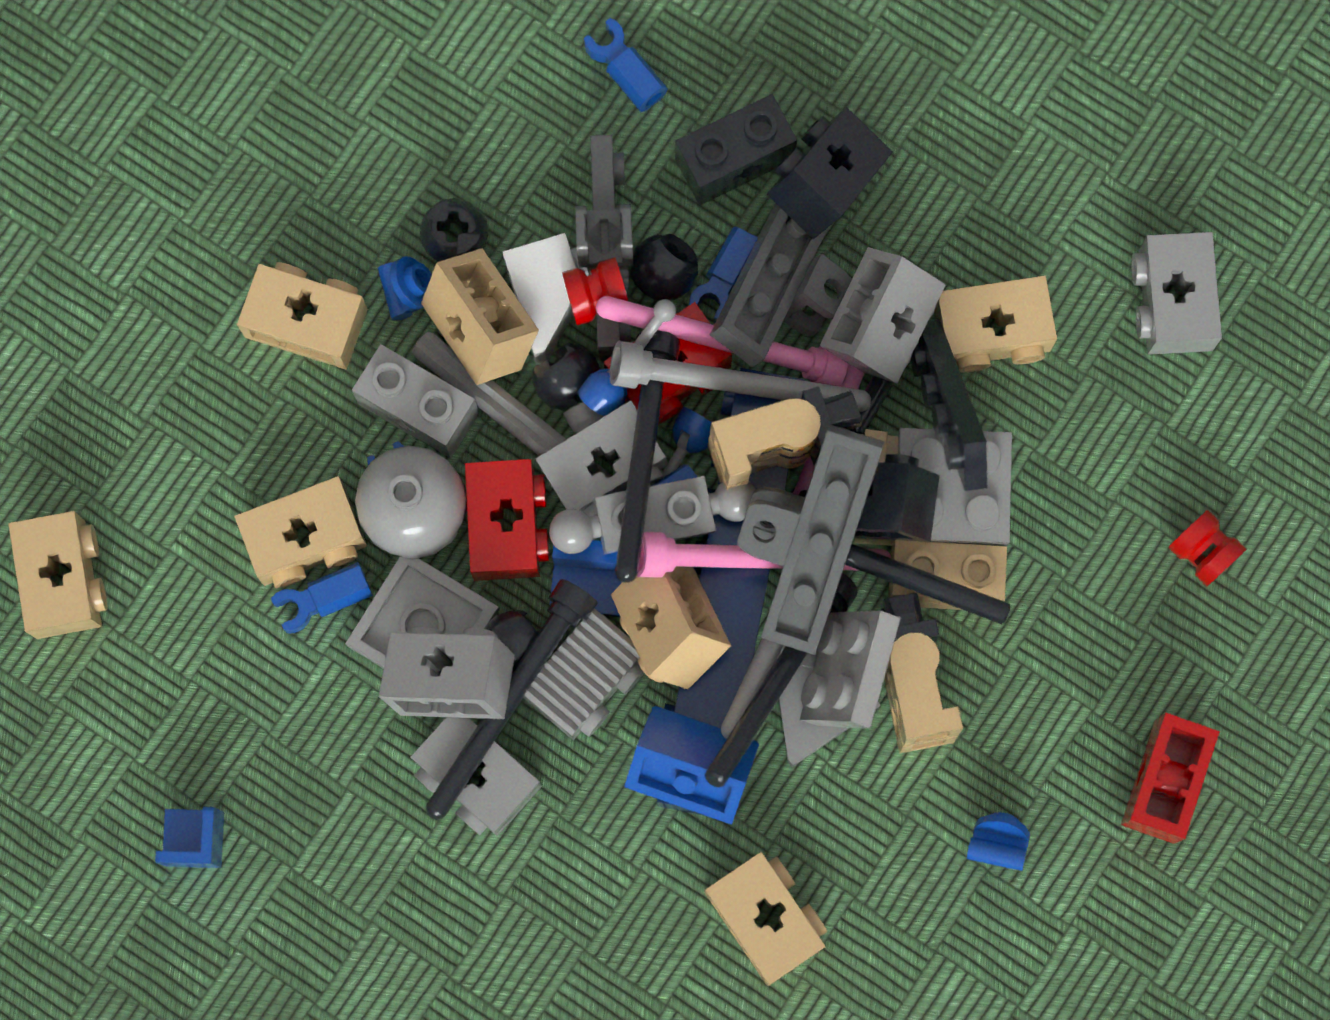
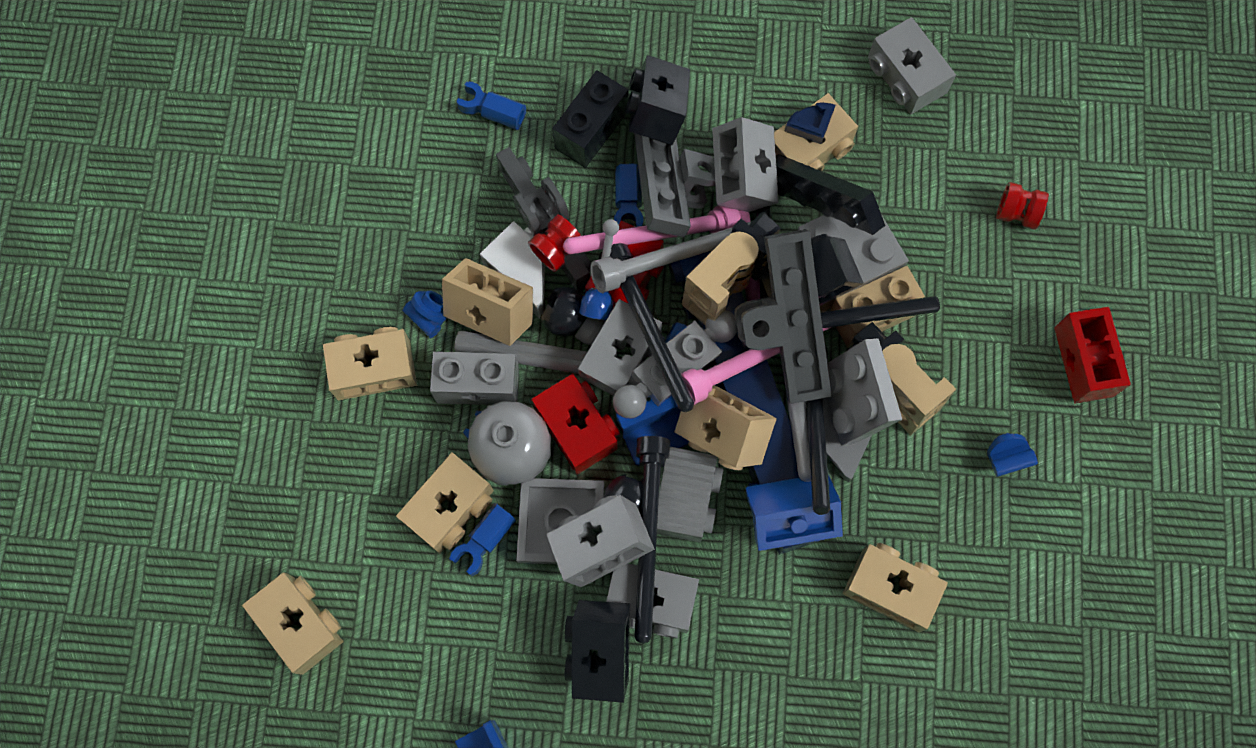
camera: 30 degrees left, 5 degrees down
(379, 798) = (605, 672): none -> black brick
(439, 219) = (434, 247): black piece -> none
(664, 267) = (588, 211): black piece -> none
(690, 435) = (664, 306): blue hinge -> none
(999, 302) = (811, 122): none -> dark blue tile

